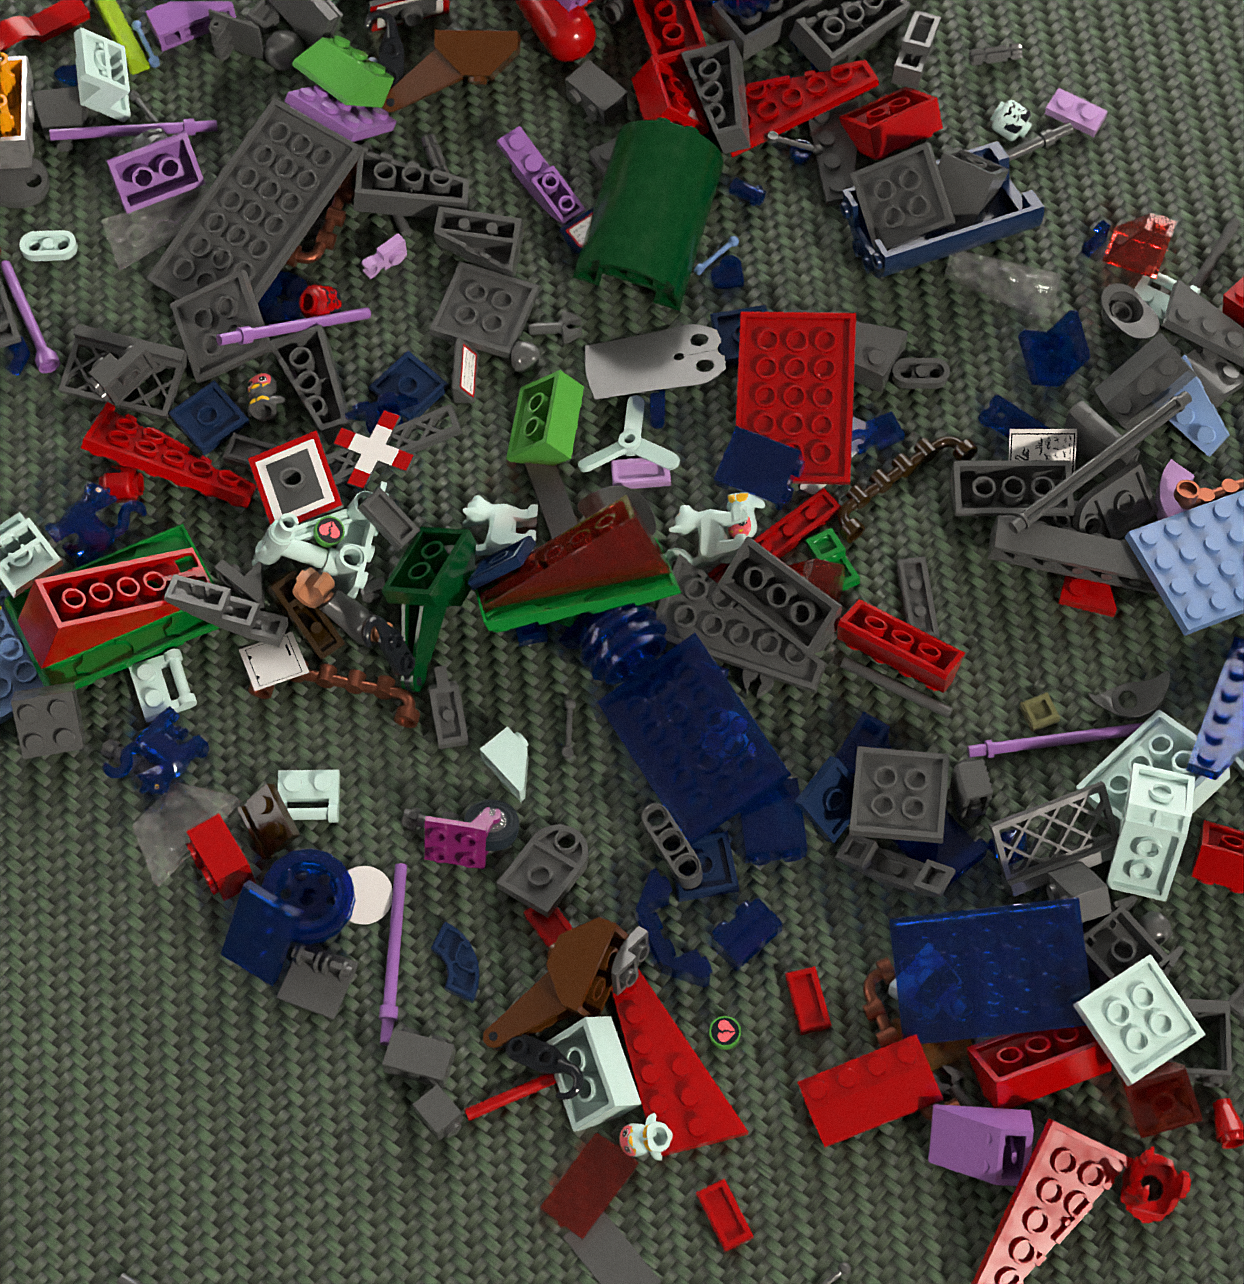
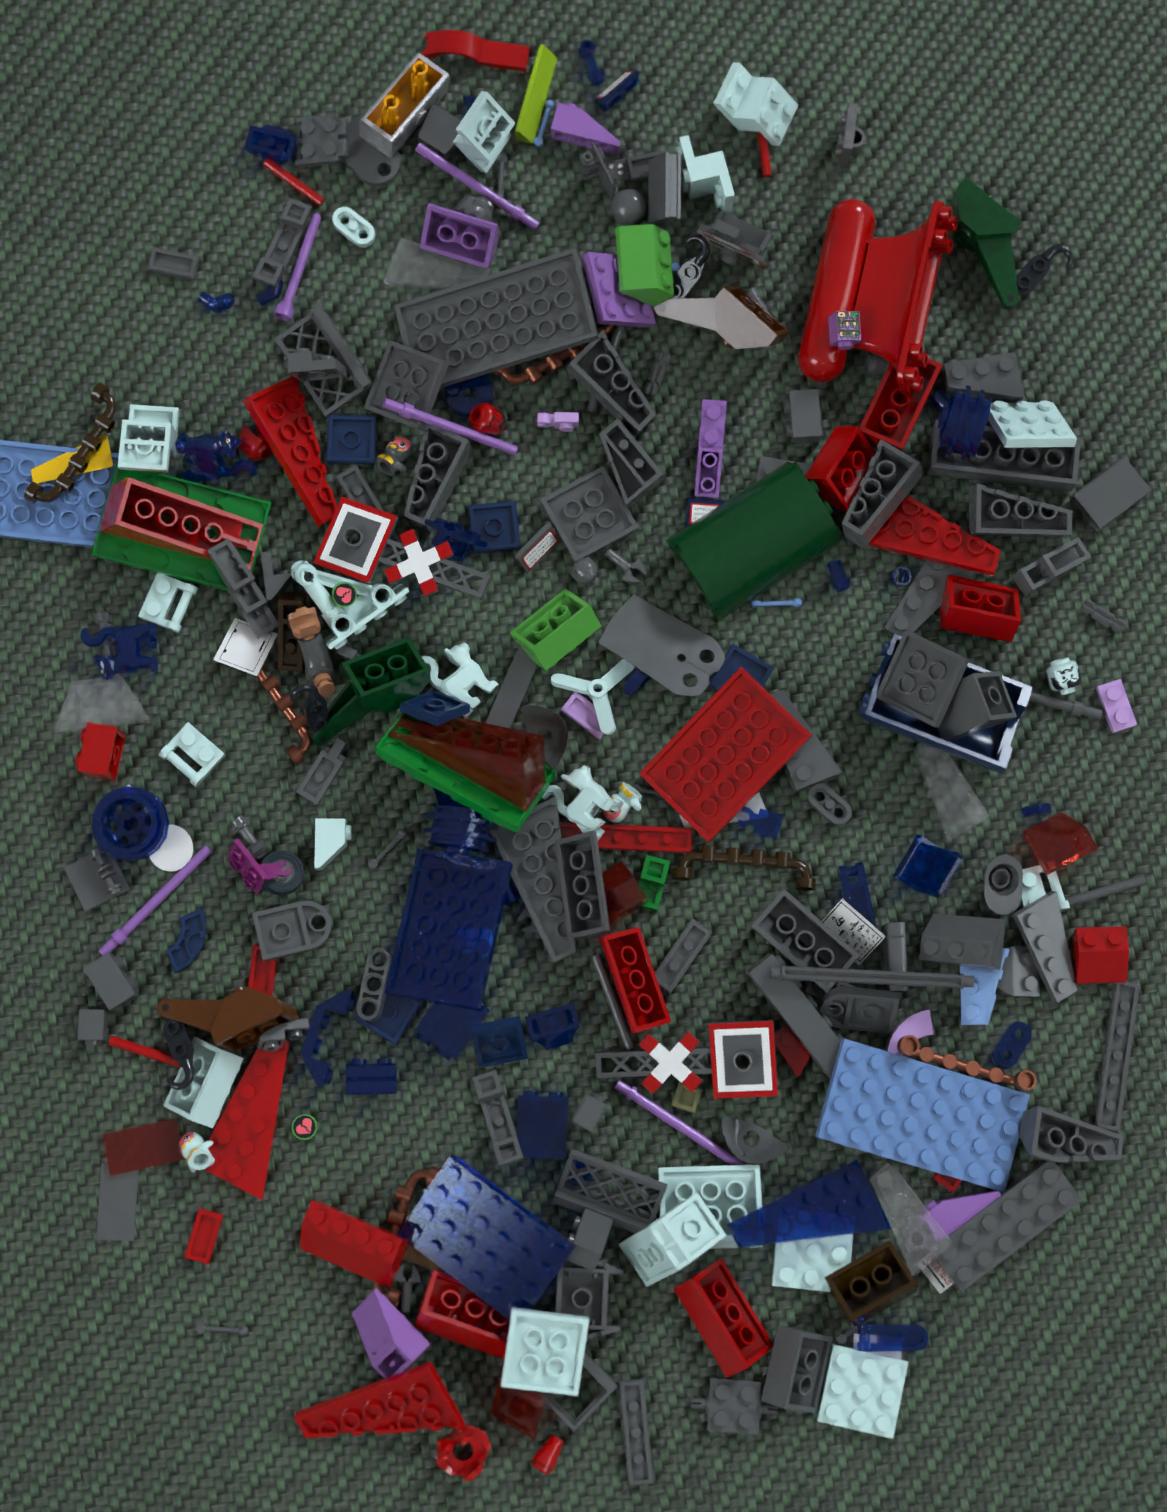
camera: 40 degrees right, 15 degrees up
(48, 720) = (75, 570): dark grey brick -> none
(260, 932) = (81, 823): clear blue tile -> none
(268, 821) = (152, 751): dark brown plate -> none
(388, 519) = (388, 618): dark grey tile -> none
(728, 274) = (772, 623): clear blue tile -> none
(760, 467) = (656, 784): clear blue panel -> none
(773, 137) = (888, 552): dark grey hinge -> none
(807, 1000) = (372, 1151): red tile -> none
(899, 794) = (539, 1078): dark grey plate -> none
(1033, 626) = (727, 1041): none -> piece
(1156, 926) = (620, 1298): dark grey piece -> none

